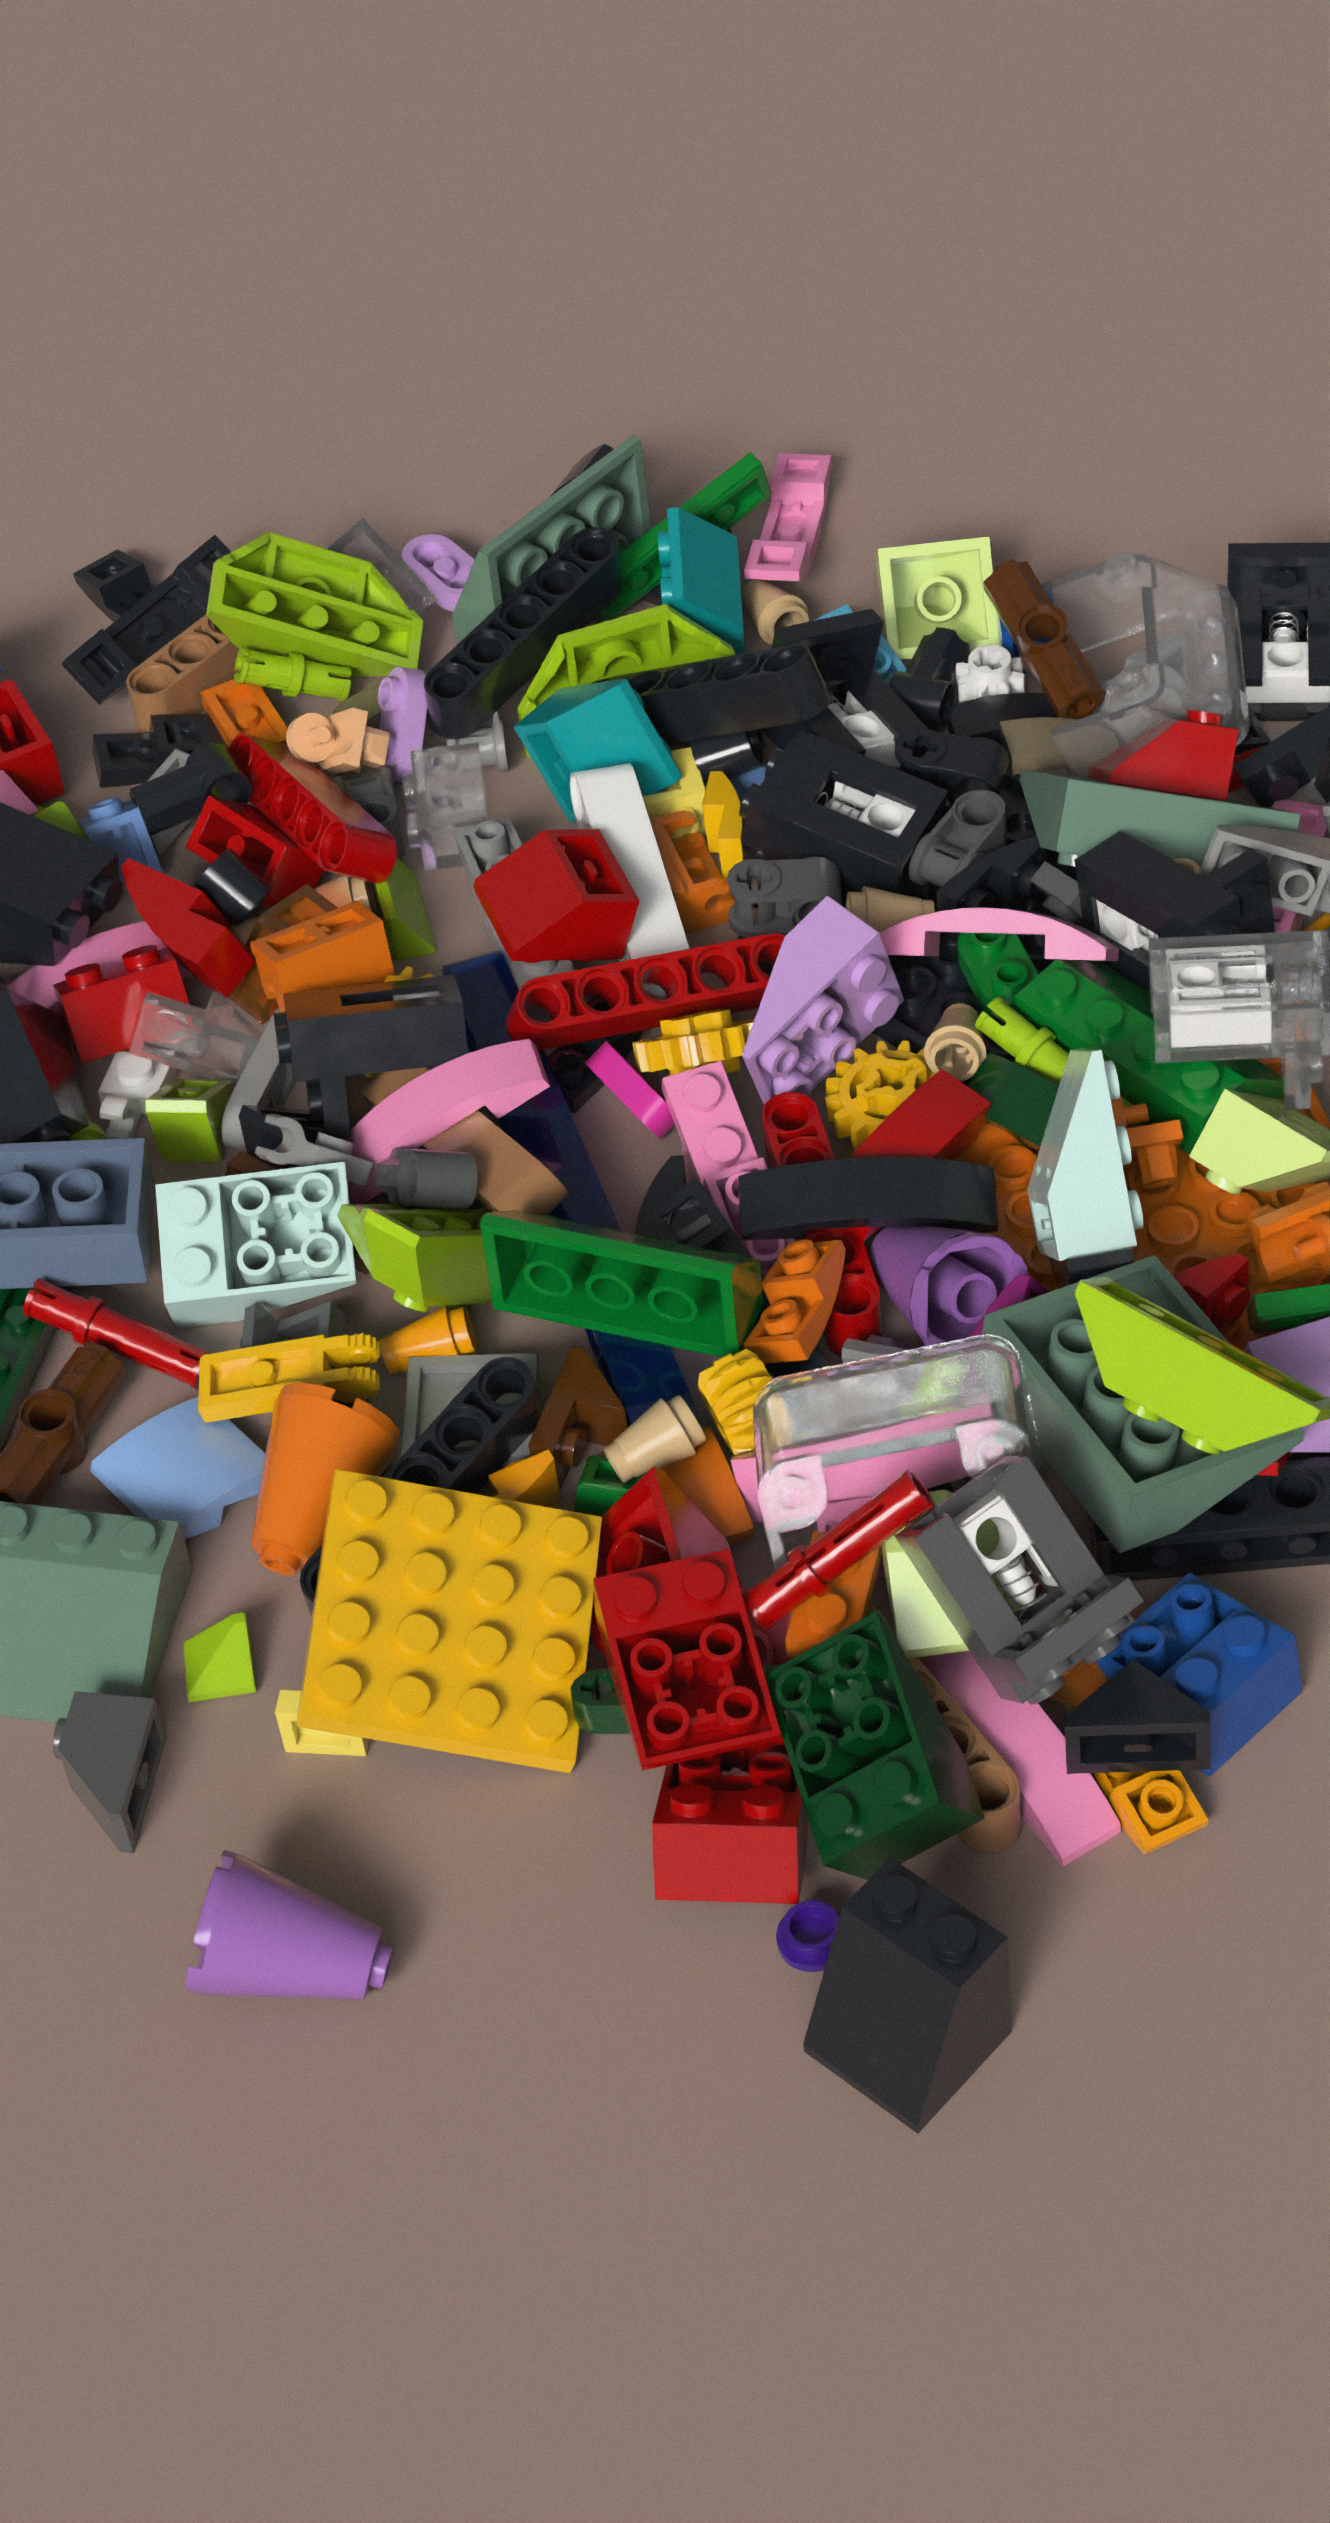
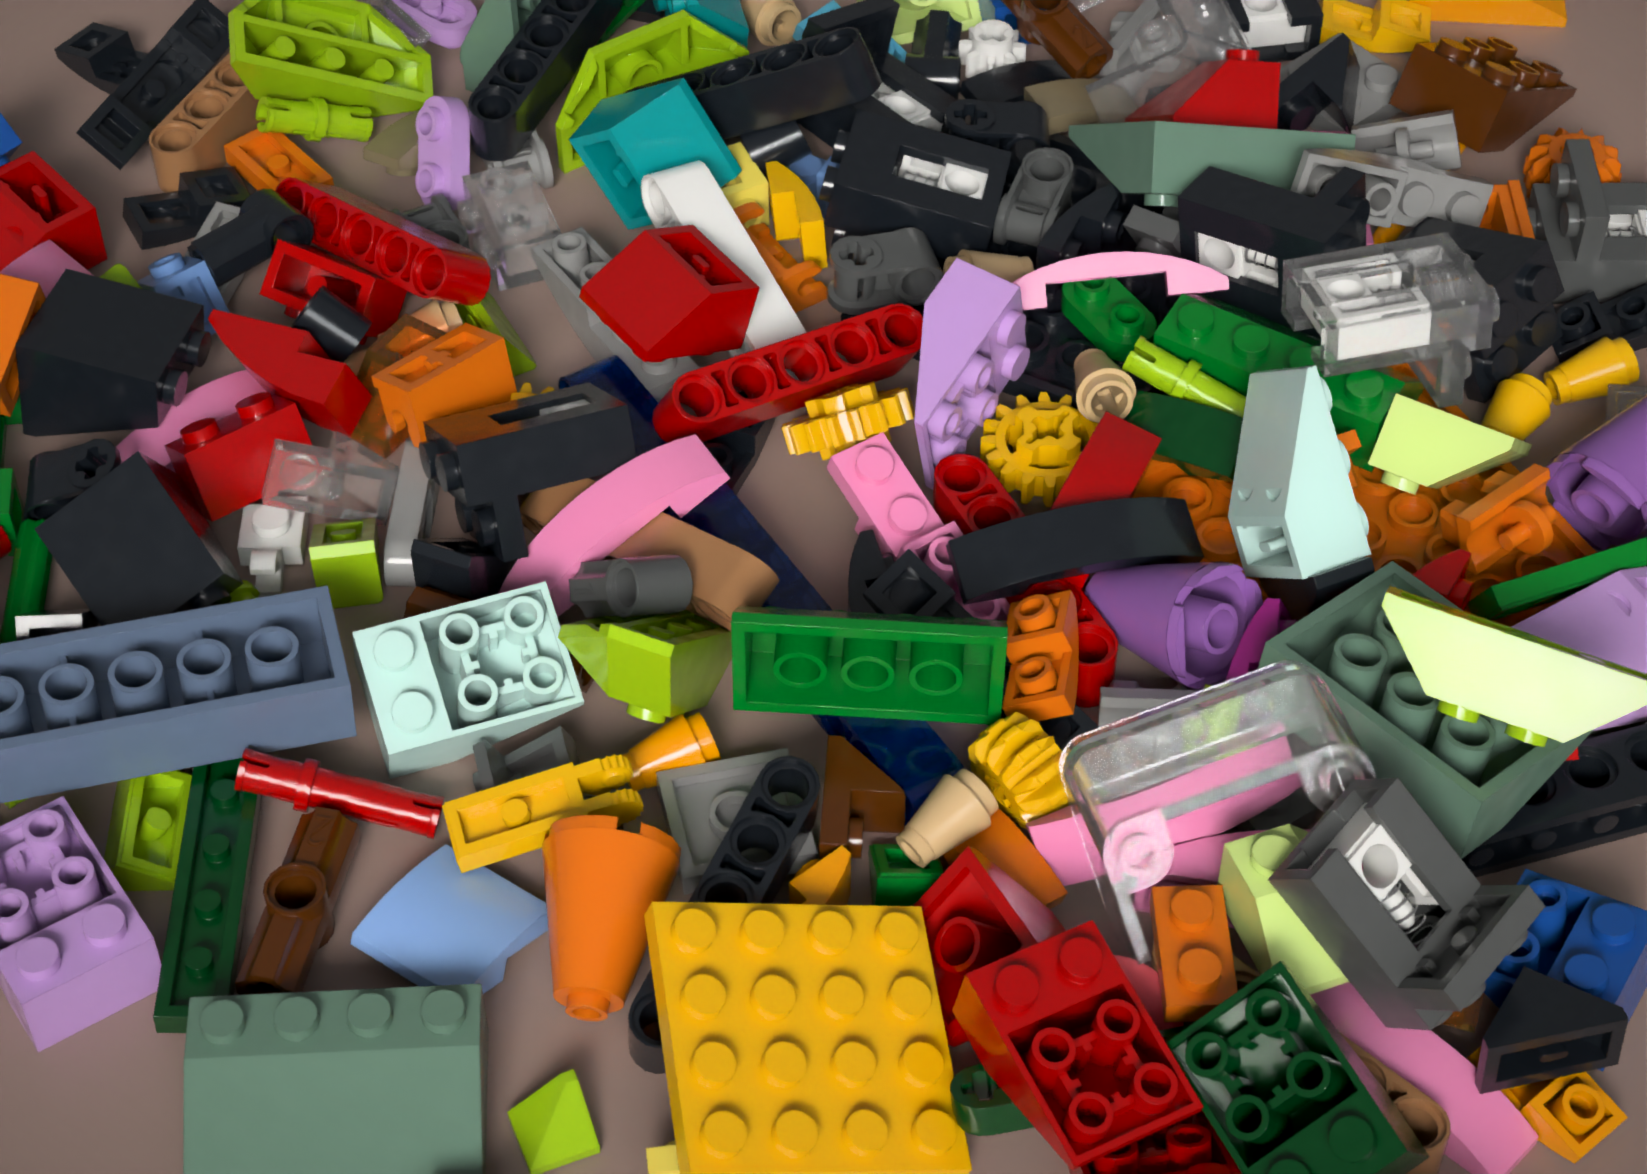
camera: 20 degrees left, 0 degrees up
(327, 1149) = (491, 579): light grey plate -> none
(337, 741) = (388, 174): light nougat hips -> none
(631, 1089) = (790, 473): dark pink beam -> none
(816, 1566) = (1206, 903): red pin -> none

